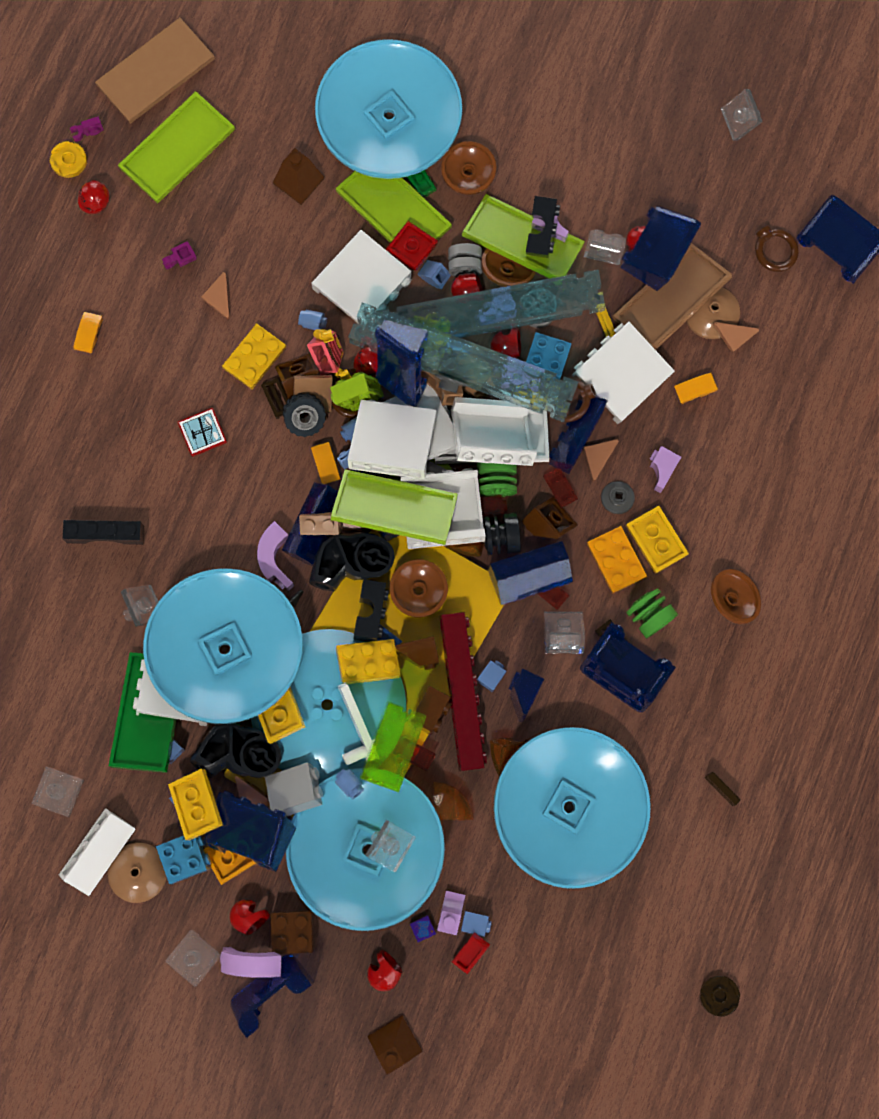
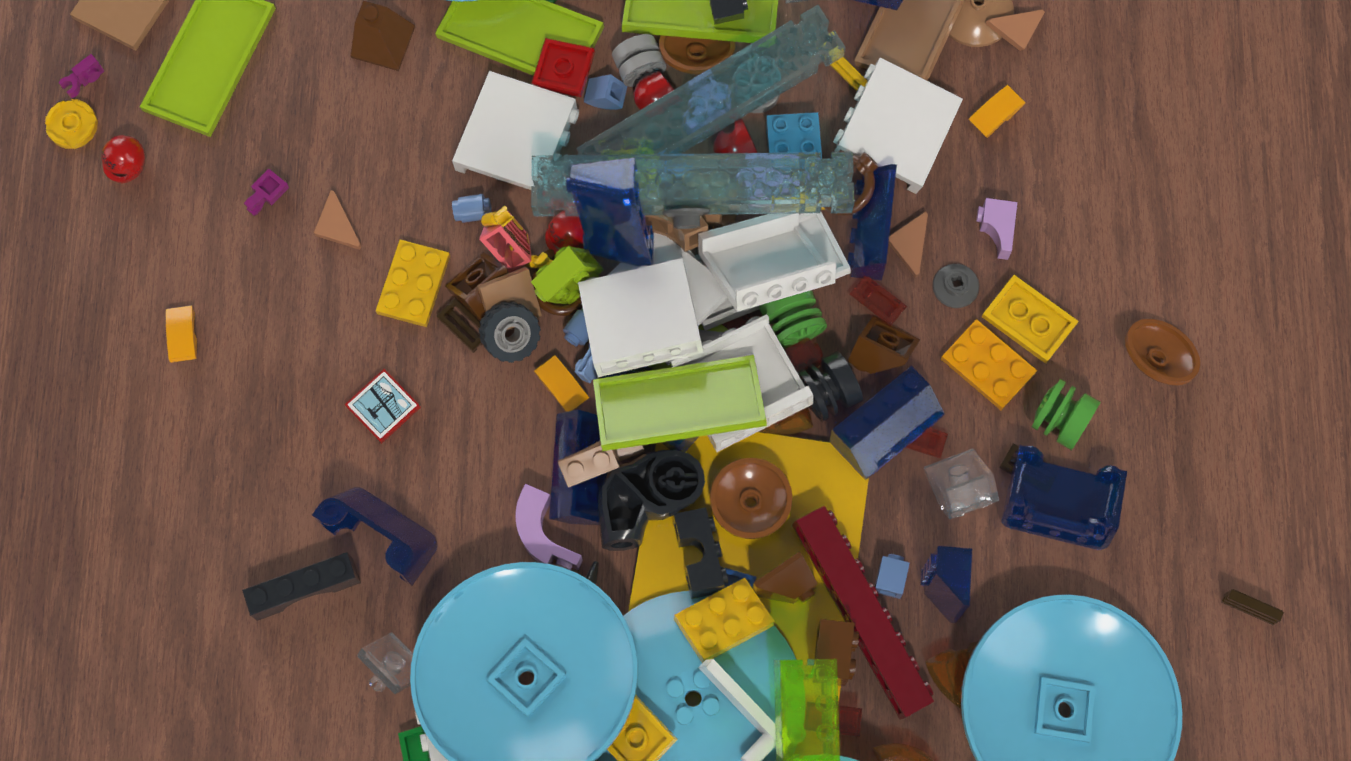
camera: 15 degrees left, 5 degrees down
(184, 530) = (411, 543): none -> clear blue windscreen

